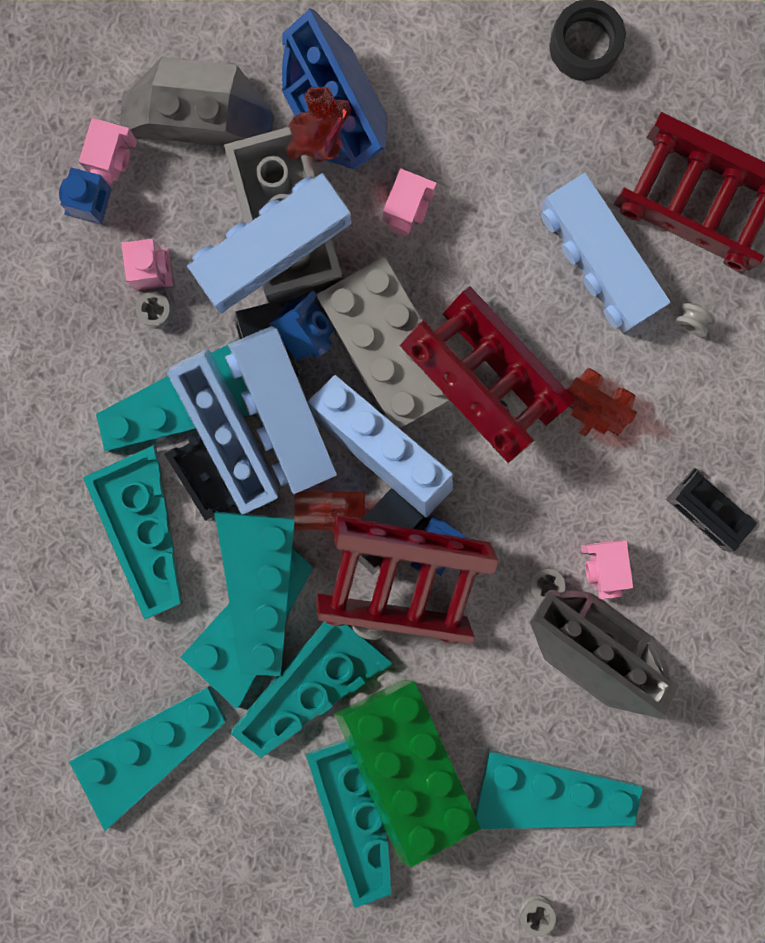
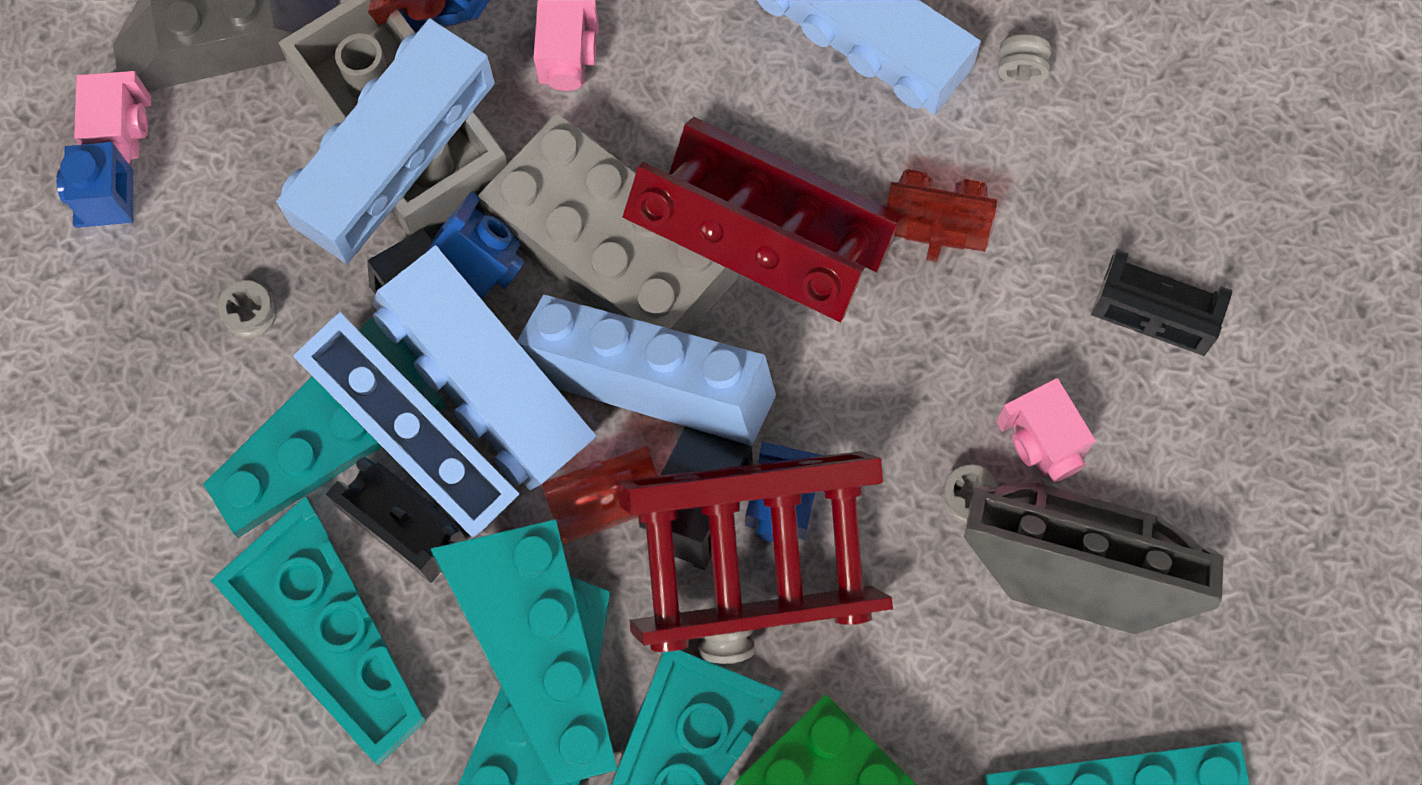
camera: 20 degrees left, 15 degrees down
(147, 265) = (216, 247): bright pink brick -> none

